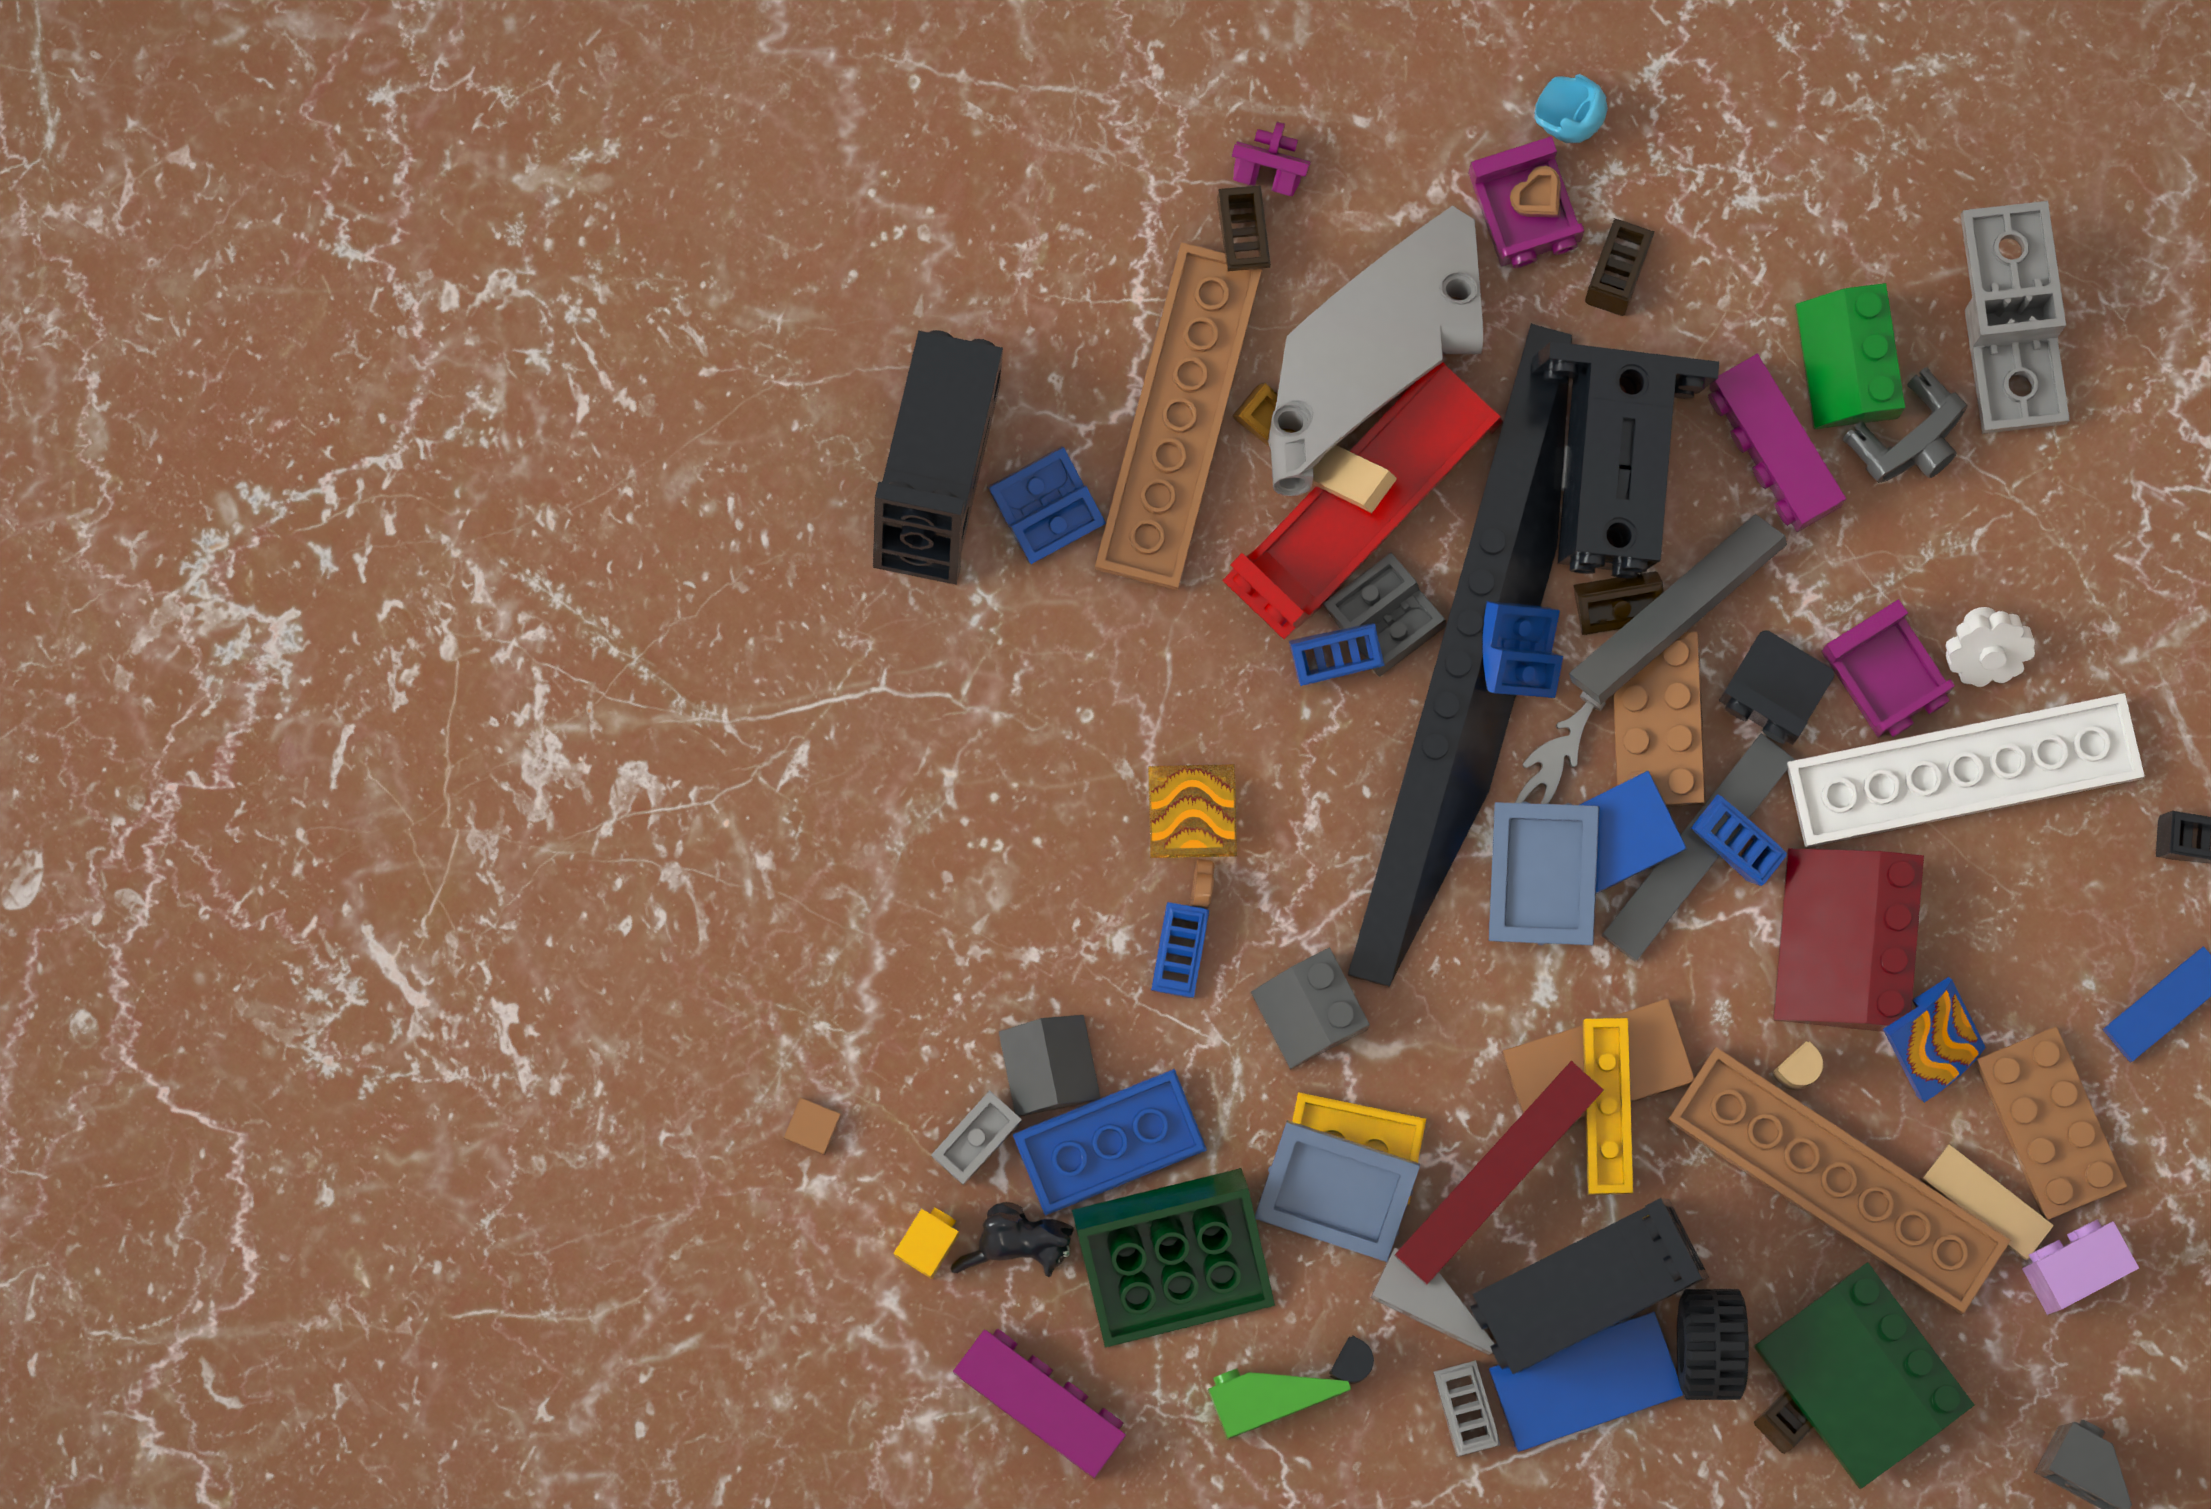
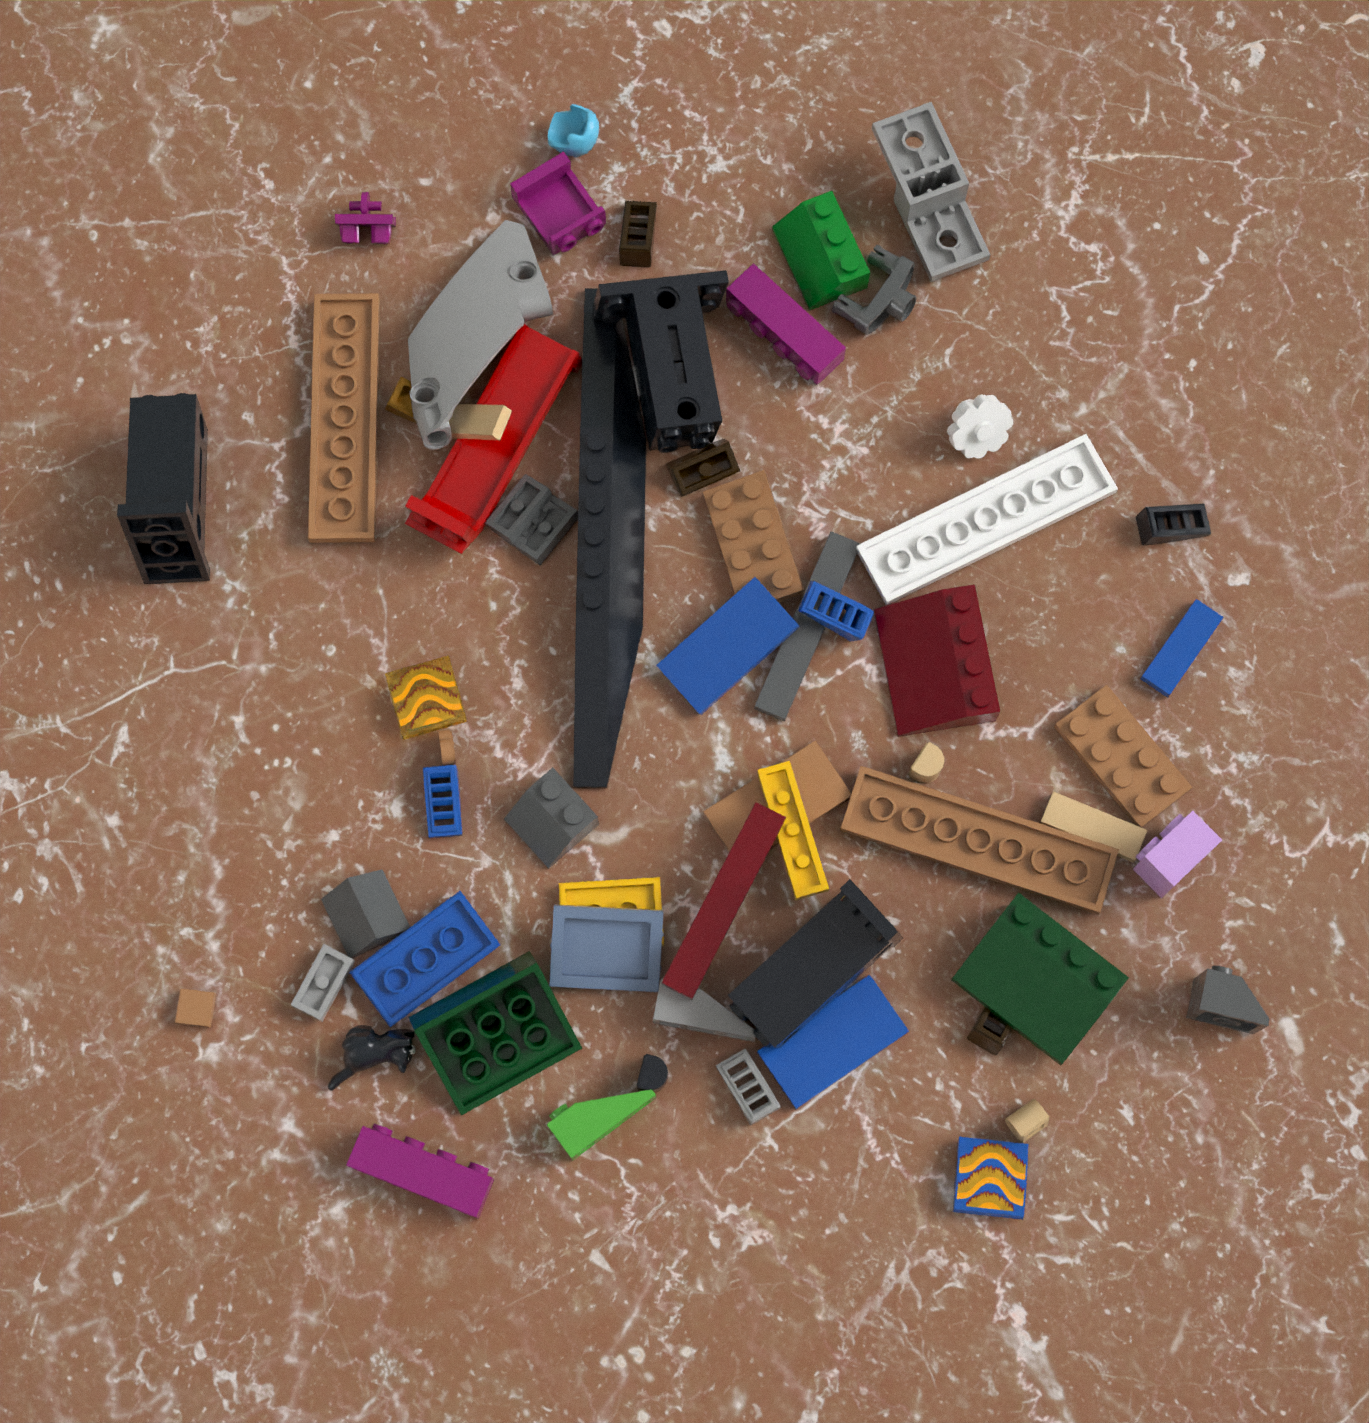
camera: 15 degrees left, 5 degrees down
(927, 1241) = (304, 1071): yellow brick -> none
(1046, 505) = (262, 505): blue slope -> none
(1237, 199) = (350, 253): dark brown slope -> none
(1340, 668) = (479, 569): blue slope -> none
(1519, 649) = (637, 515): blue slope -> none
(1539, 194) = (566, 196): medium nougat tile -> none
(1544, 873) = (698, 672): sand blue piece -> none
(1552, 753) = (682, 585): light grey piece -> none
(1678, 609) = (745, 458): dark grey tile -> none
(1712, 1344) = (920, 985): black tyre -> none
(1777, 687) = (833, 496): black bracket -> none
(1887, 671) = (909, 463): magenta panel -> none
(1935, 1040) = (1021, 716): slope -> none

